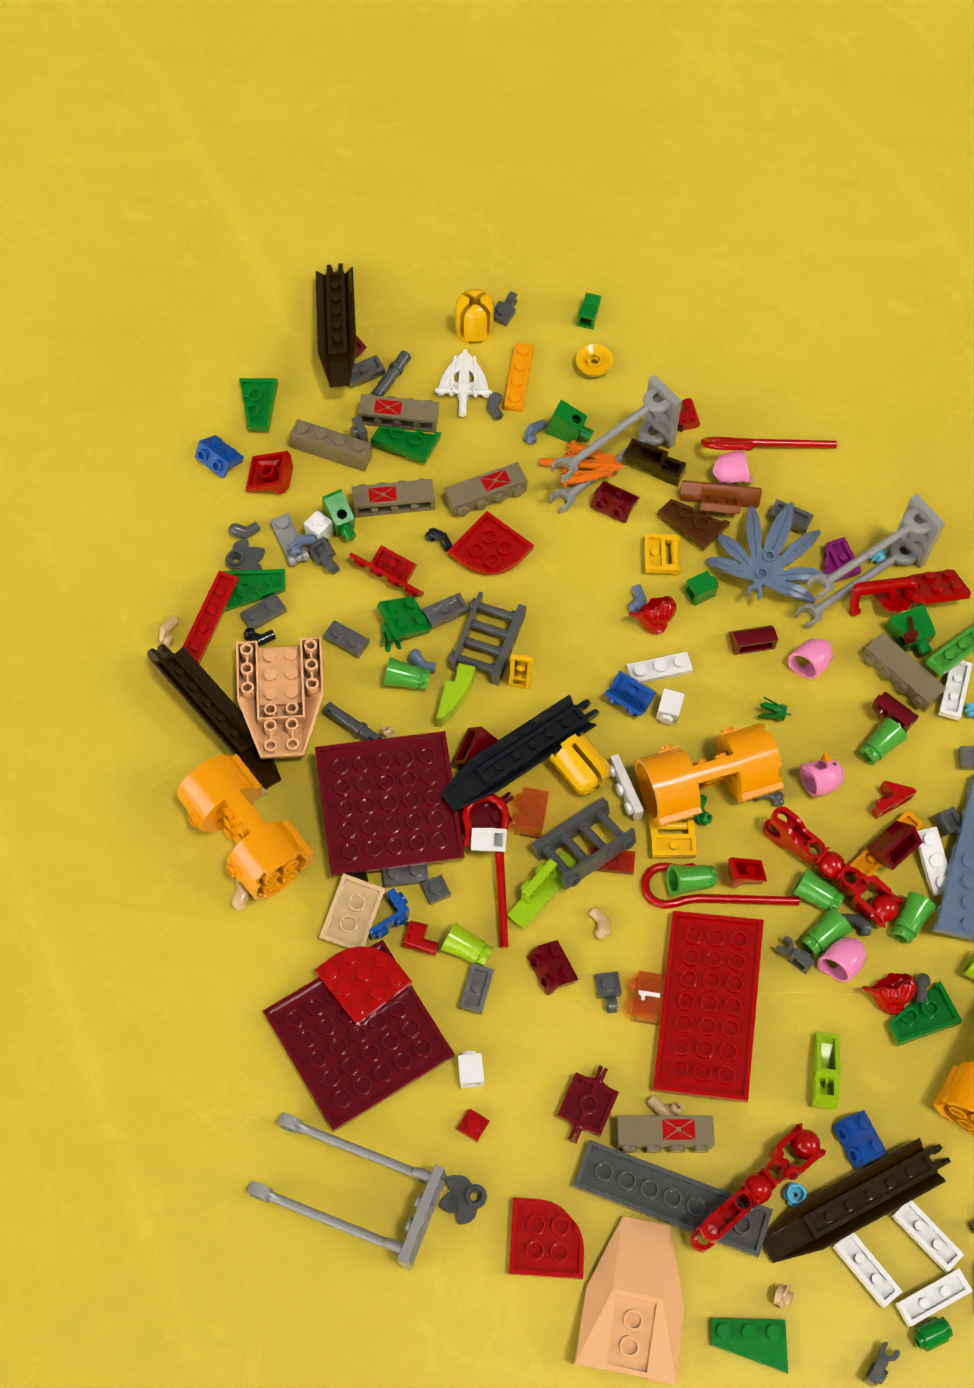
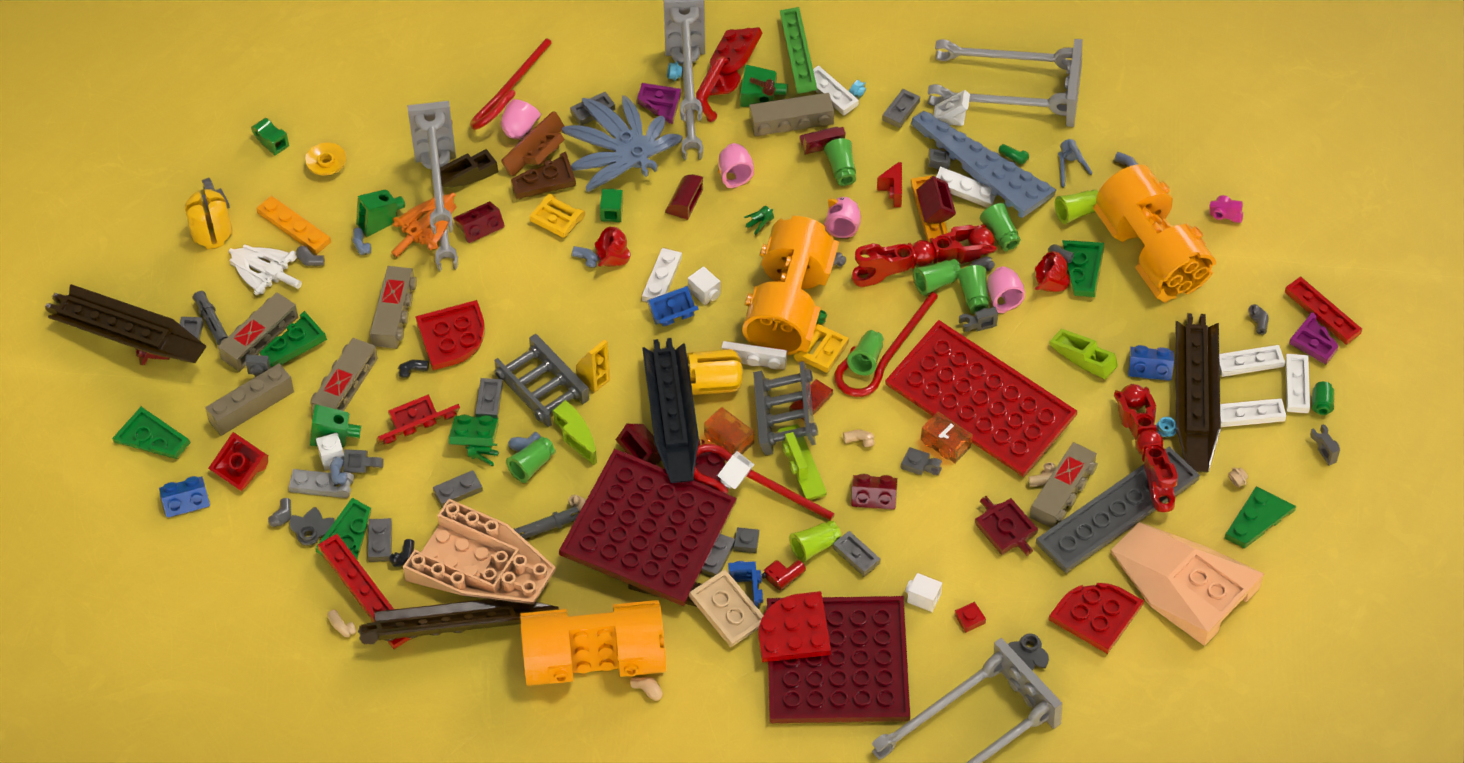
camera: 55 degrees left, 10 degrees down
(745, 871) = (885, 316): red slope -> none

